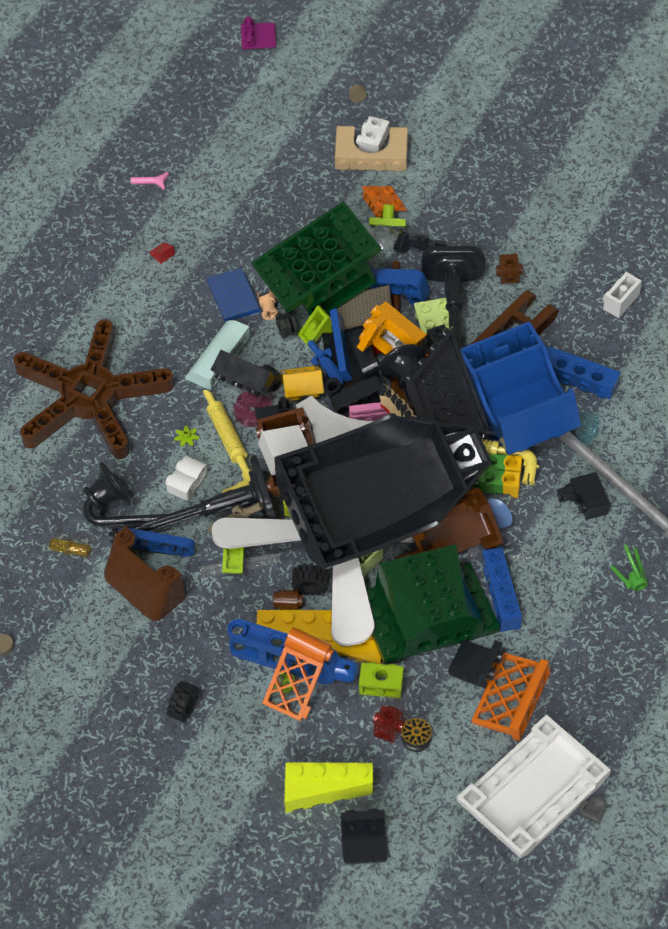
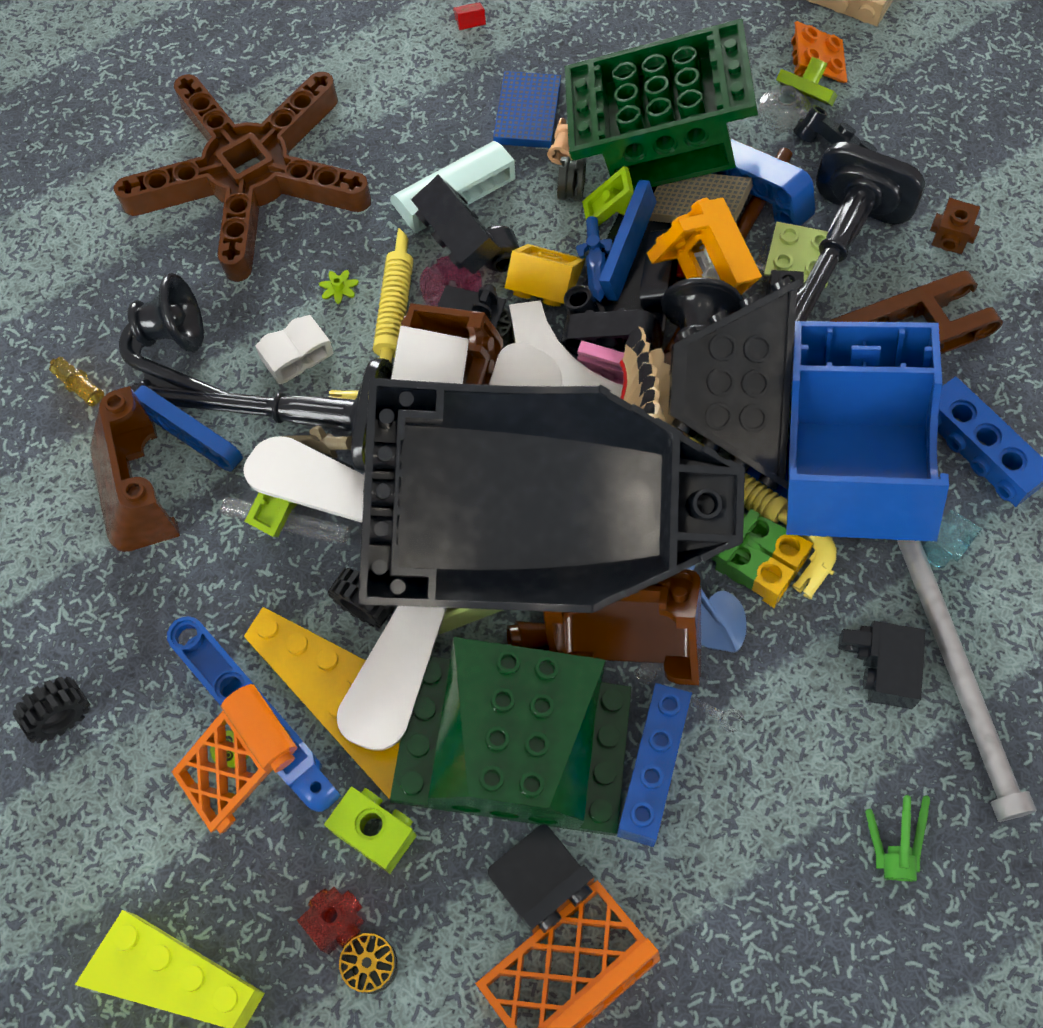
camera: 30 degrees right, 10 degrees up
(287, 600) = (315, 613): reddish brown brick -> none

